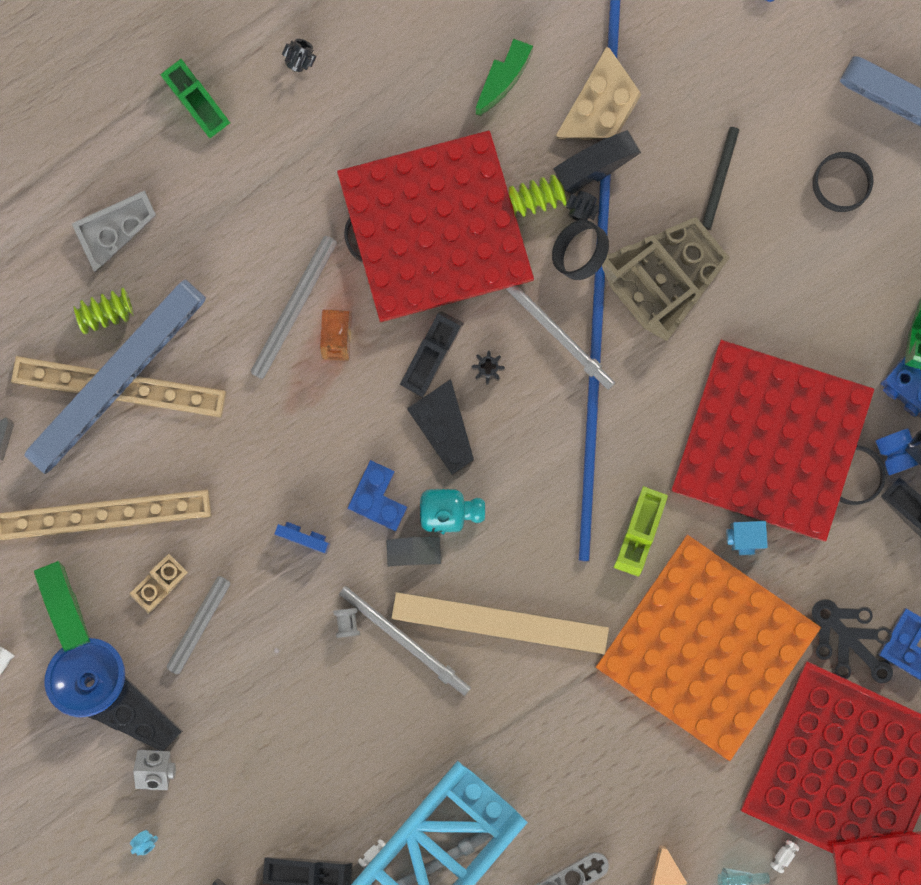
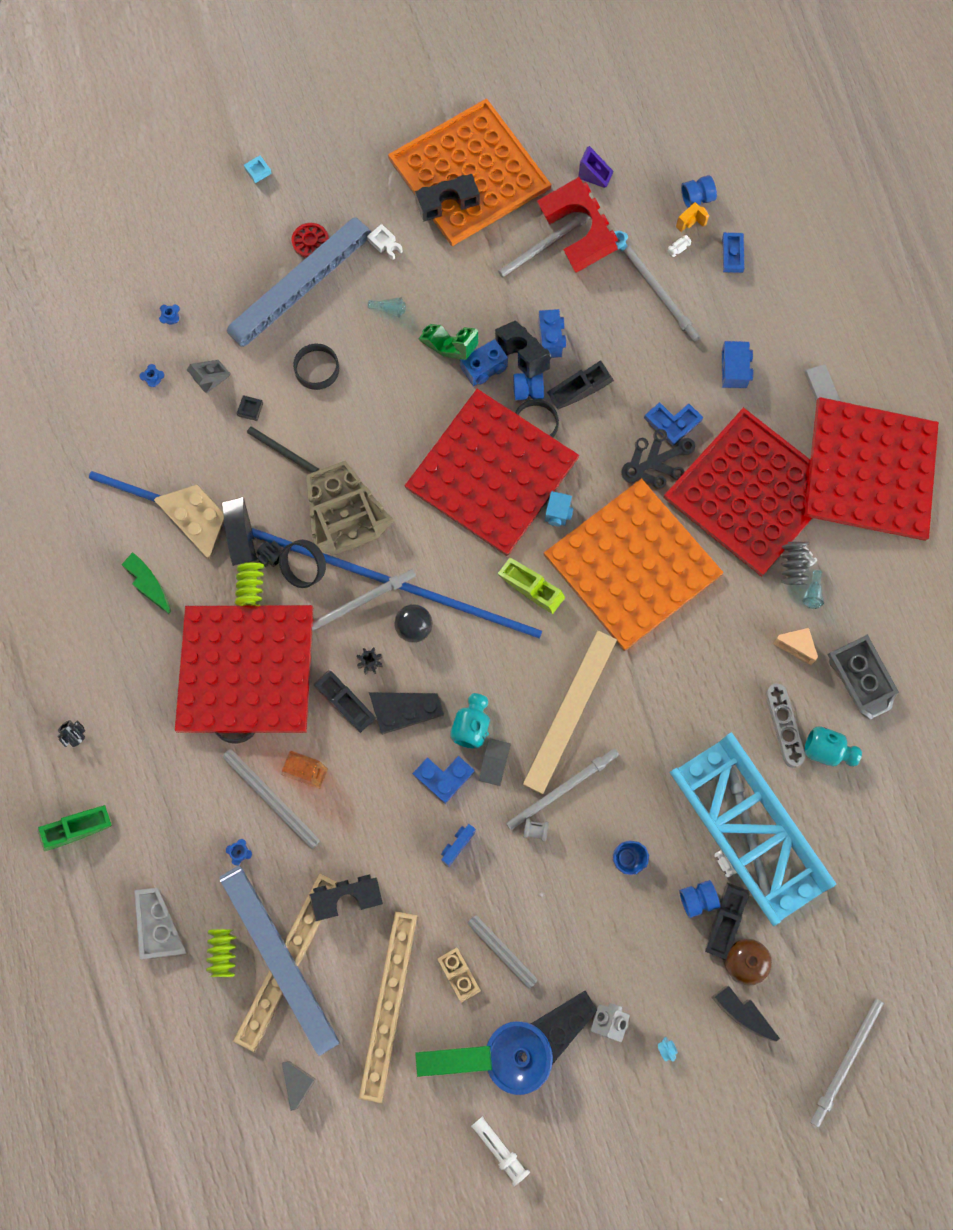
camera: 75 degrees left, 10 degrees down
(195, 407) = (325, 900): none -> black arch
(230, 291) = (232, 851): none -> blue plate
(322, 835) = (700, 898): none -> blue wheel
(346, 742) = (630, 857): none -> blue hair
(548, 404) = (413, 623): none -> black piece
(763, 119) = (250, 408): none -> black tile
(766, 848) = (795, 563): none -> dark grey piece
(789, 54) = (208, 374): none -> dark grey slope

